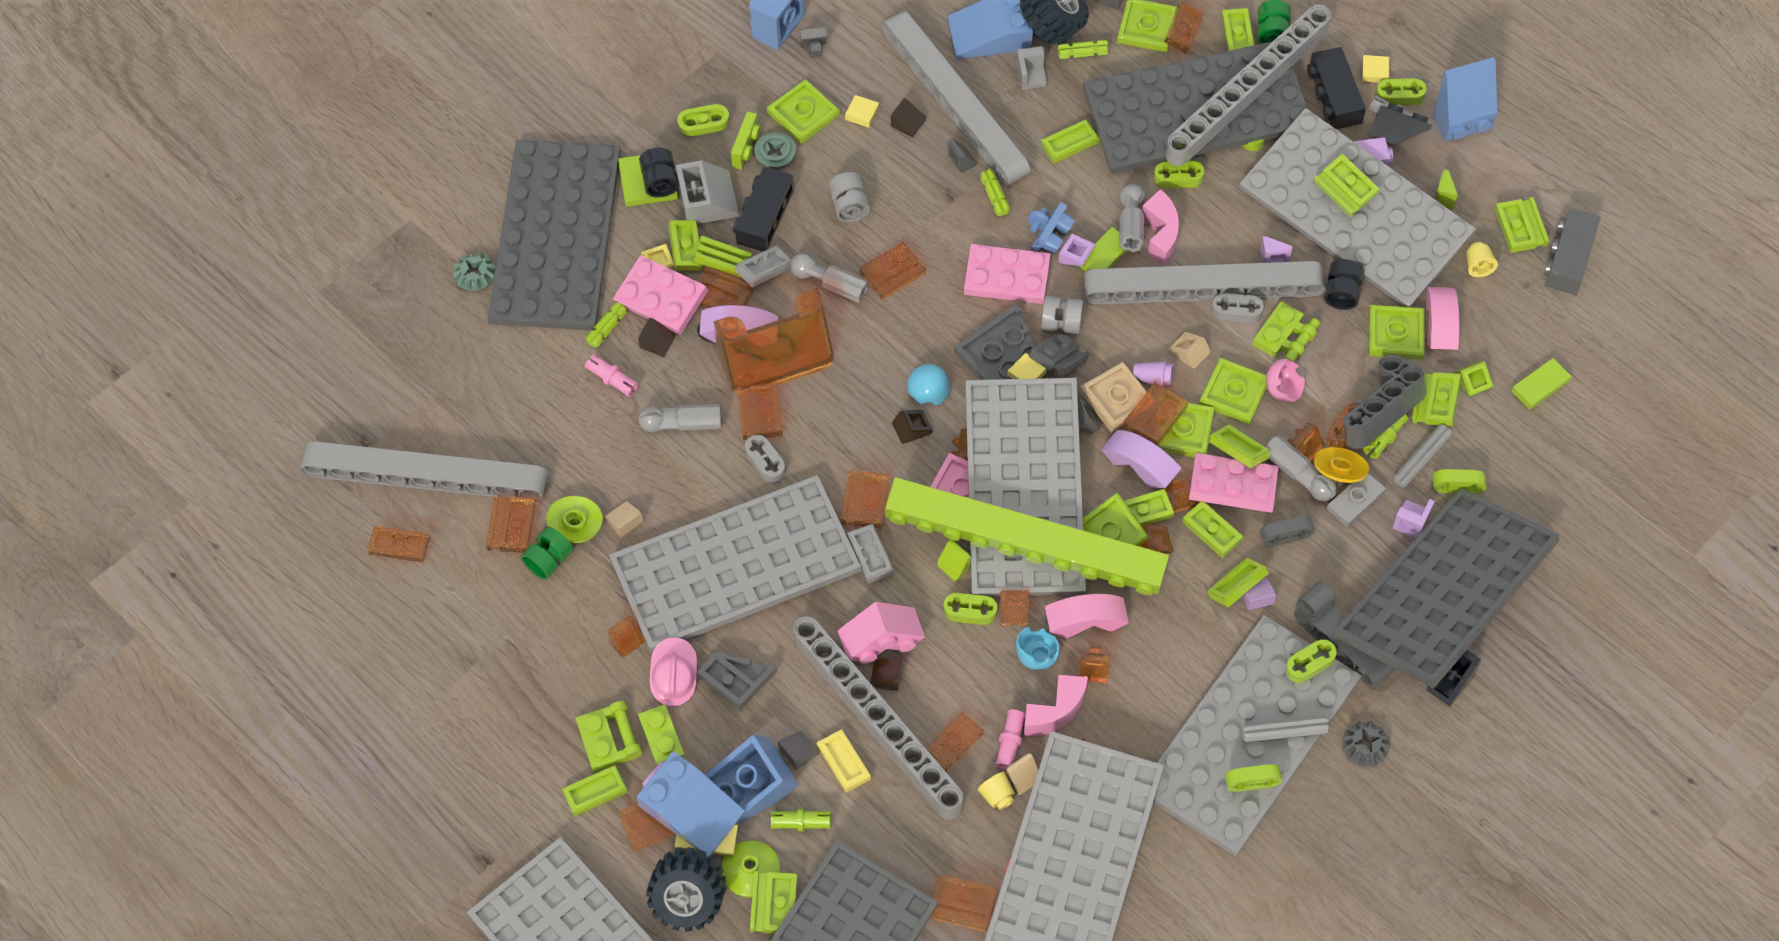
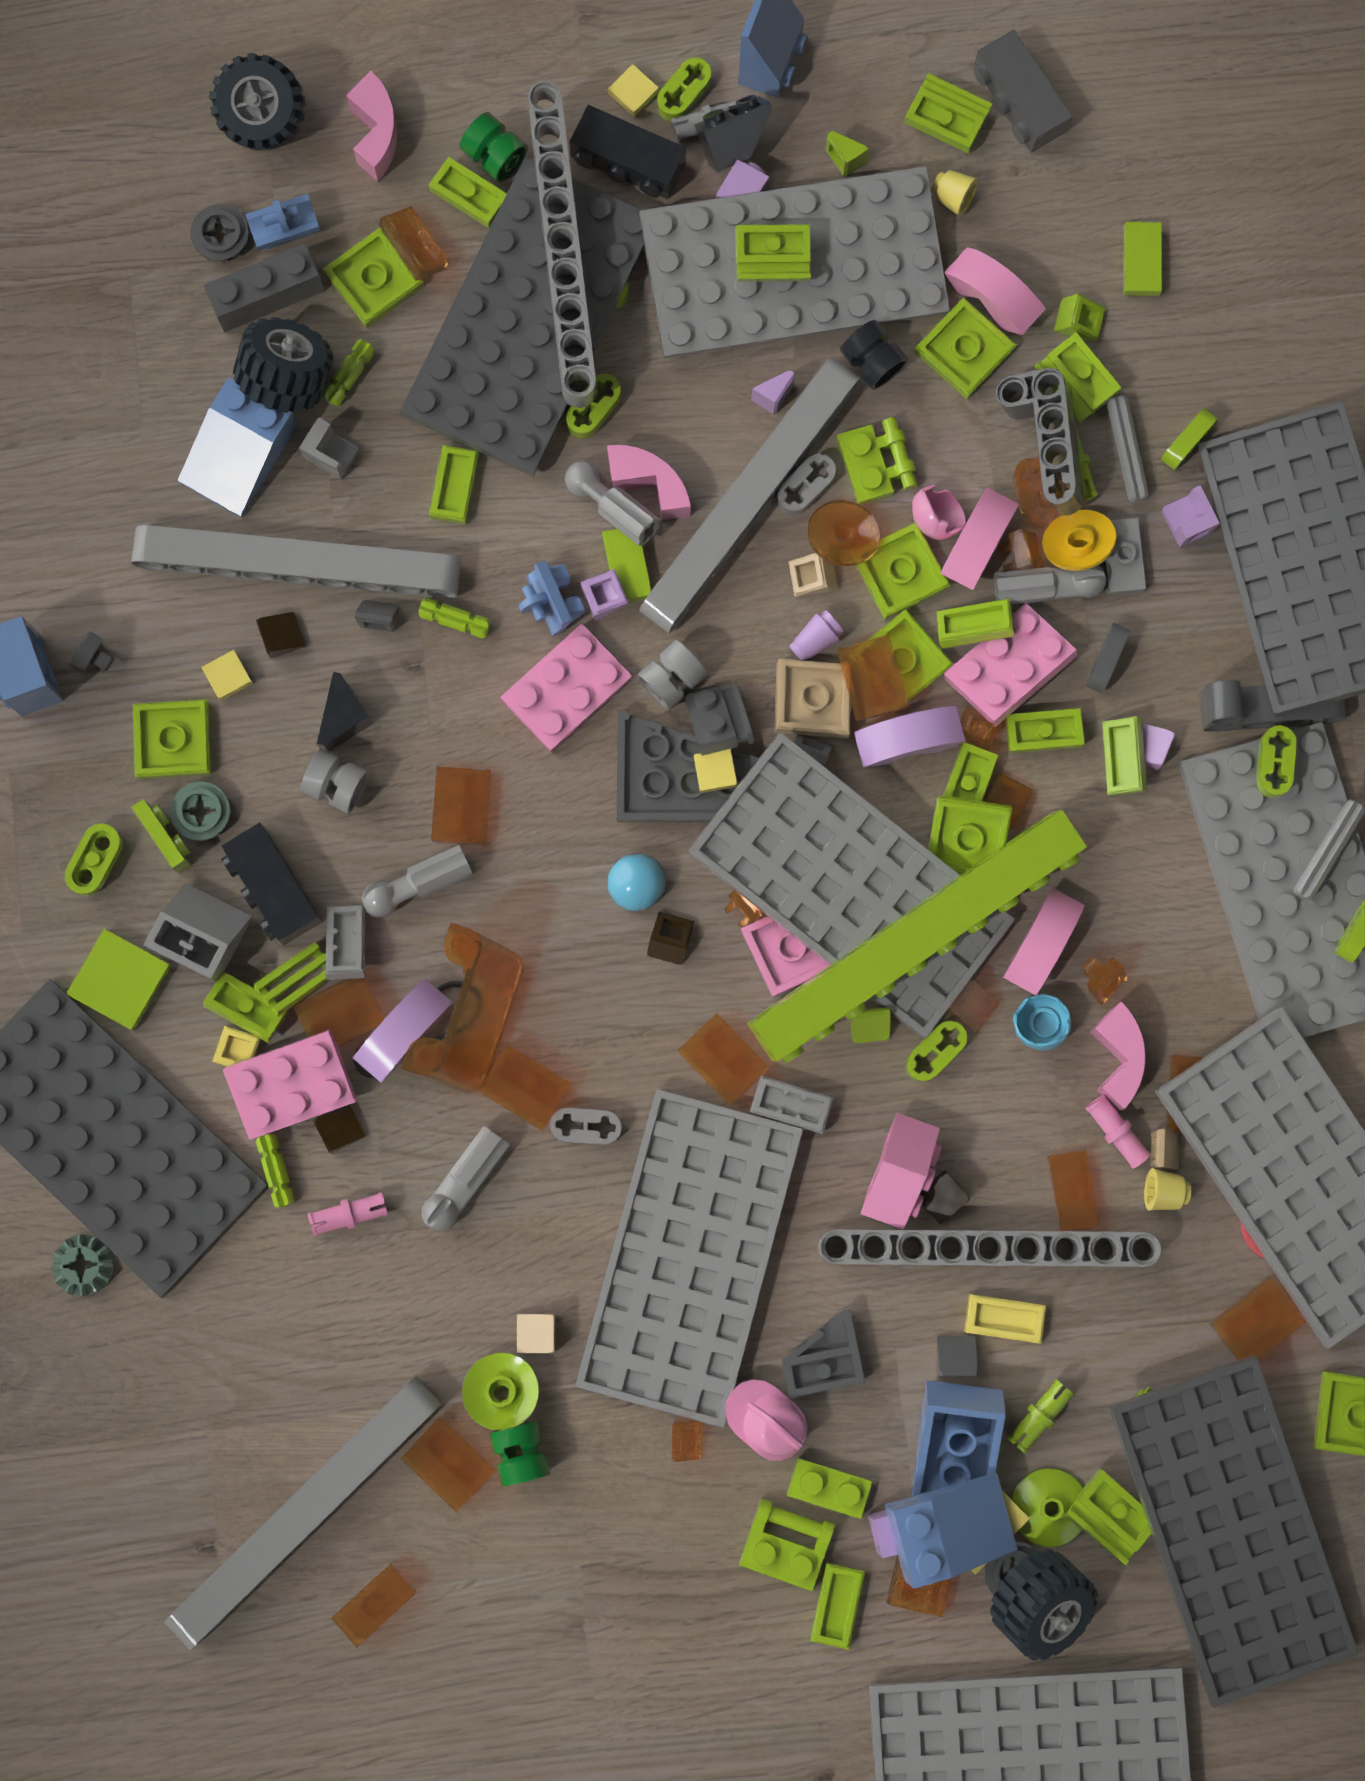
camera: 55 degrees left, 20 degrees up
(658, 172) = (129, 967): black wheel -> none
(888, 176) = (342, 715): none -> black slope
(1226, 342) = (848, 521): none -> clear orange dish
(1288, 409) = (979, 538): none -> bright pink brick

